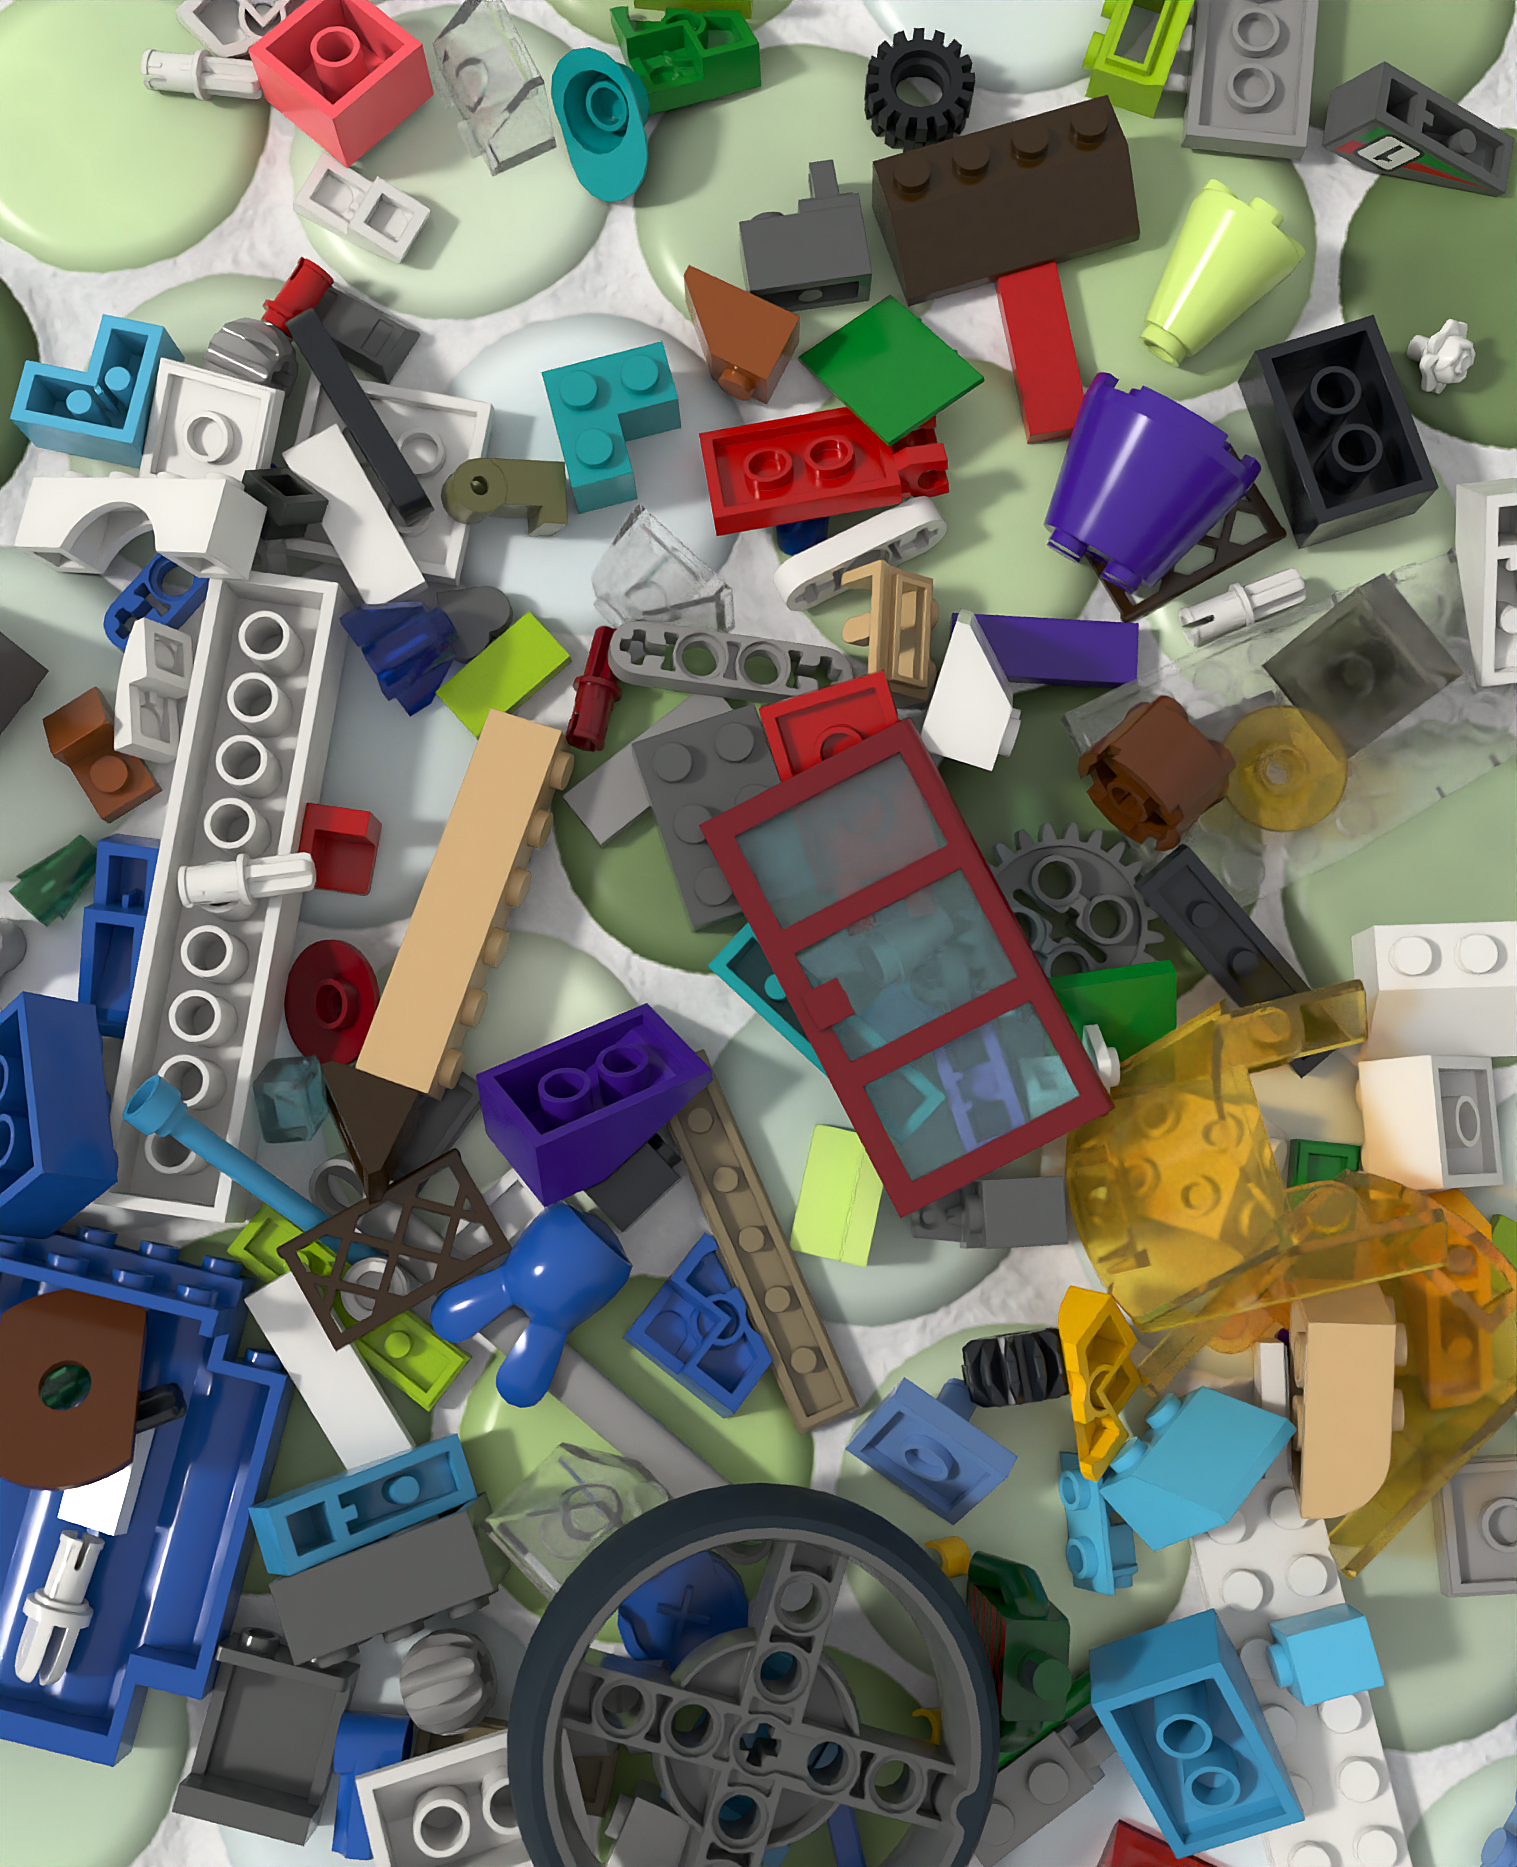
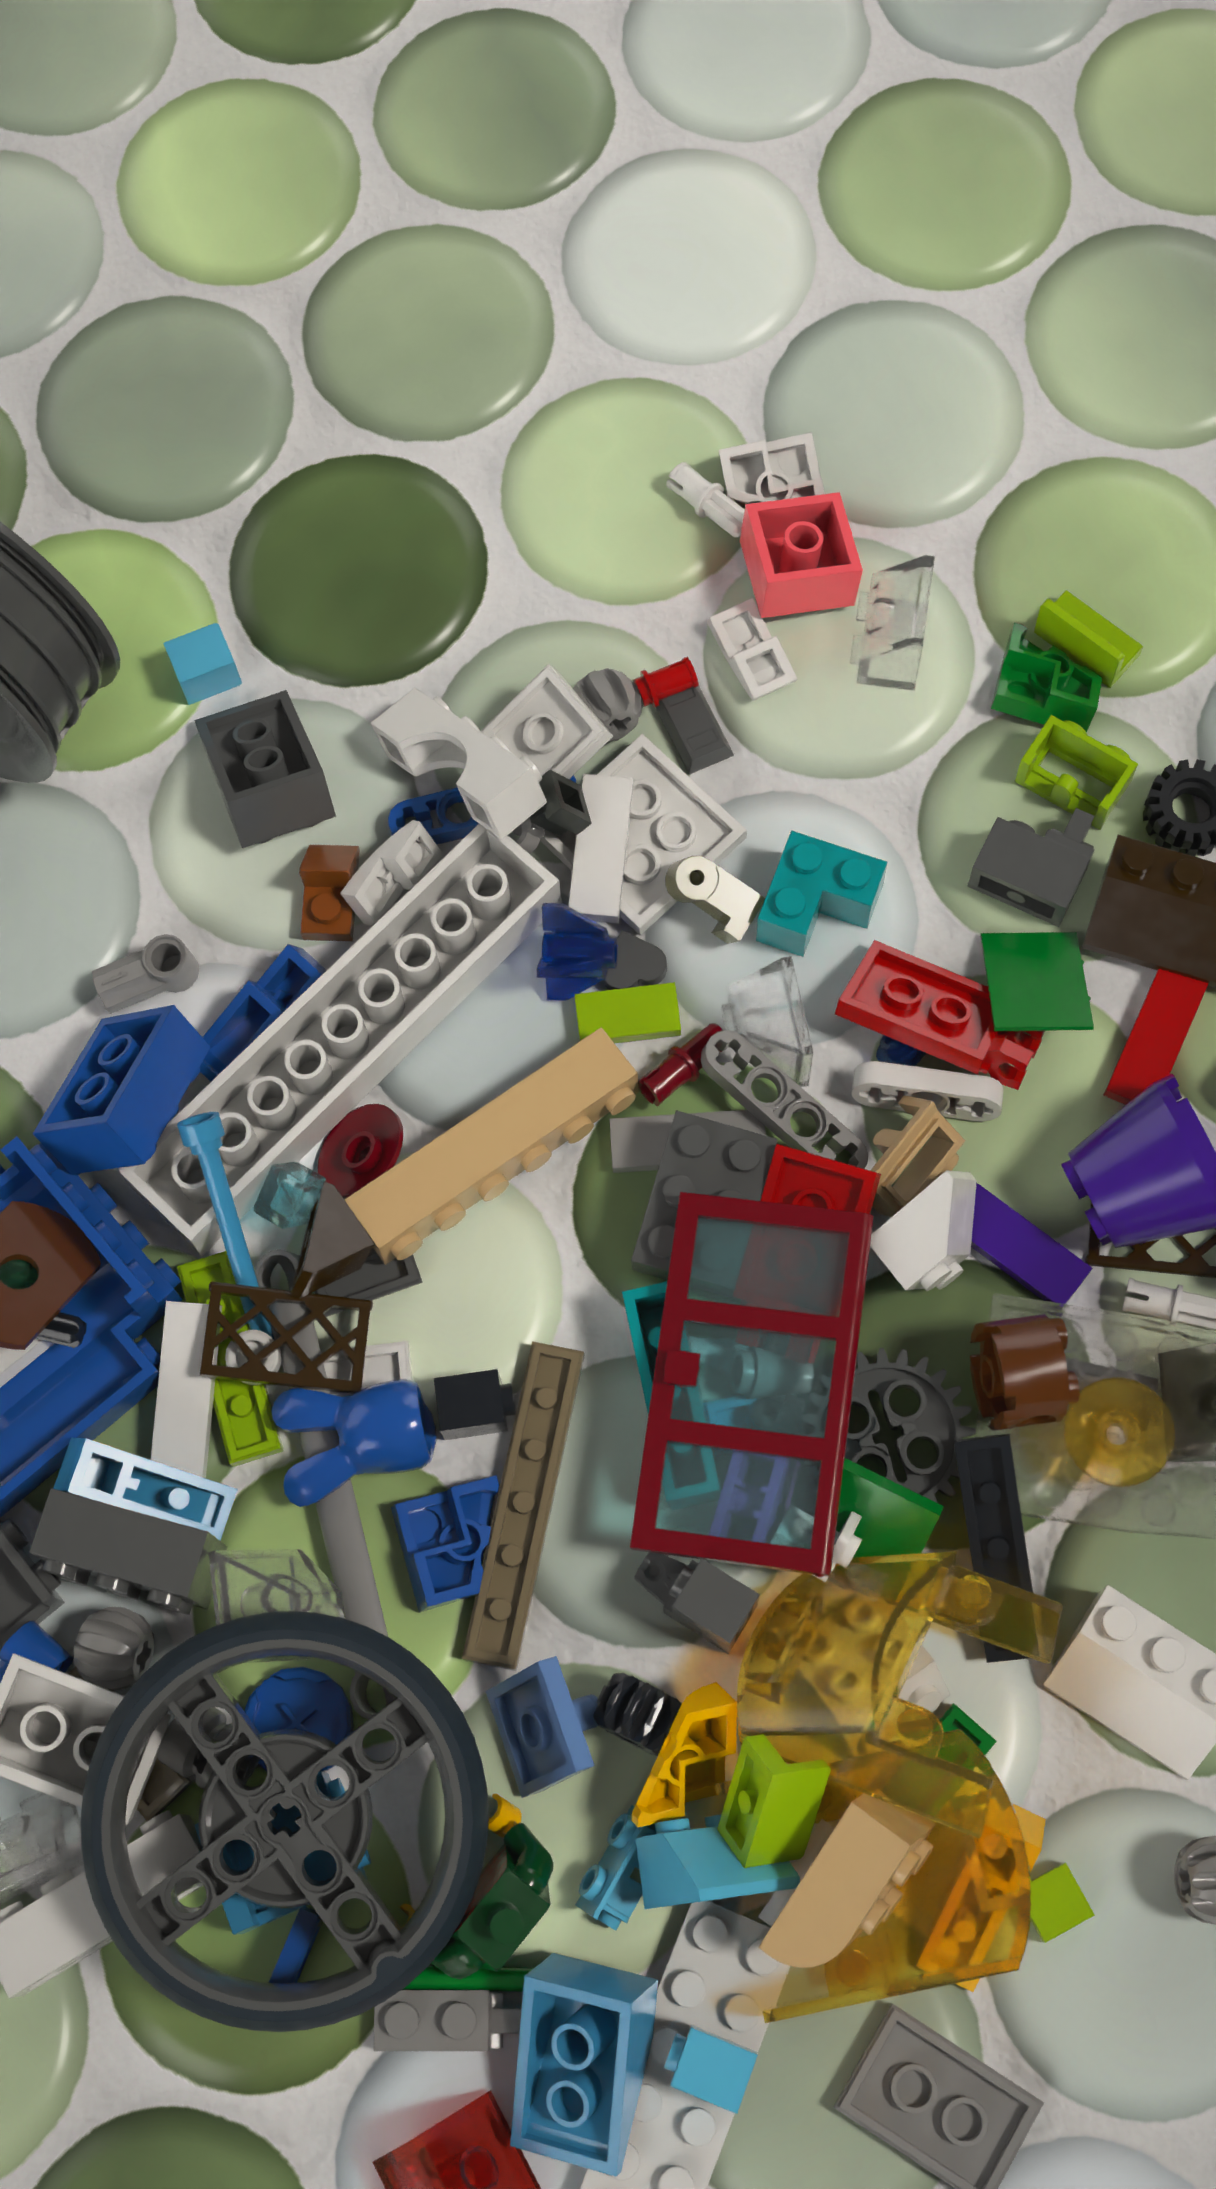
camera: 40 degrees right, 10 degrees down
(56, 881) = (243, 953): clear green cone -> none
(100, 410) = (489, 672): medium azure brick -> none
(246, 879) = (362, 1029): white axle -> none
(341, 846) = (436, 1054): red panel -> none
(359, 416) = (650, 783): black beam -> none
(588, 1100) = (480, 1328): dark purple slope -> none
(602, 122) = (954, 692): teal piece -> none
(740, 335) = (949, 895): dark orange slope -> none
(778, 100) = (1074, 746): none -> lime window
(837, 1198) = (599, 1518): yellowish green panel -> none
(1217, 1377) = (771, 1804): none -> lime panel
(1430, 1121) = (1061, 1759): slope -> none

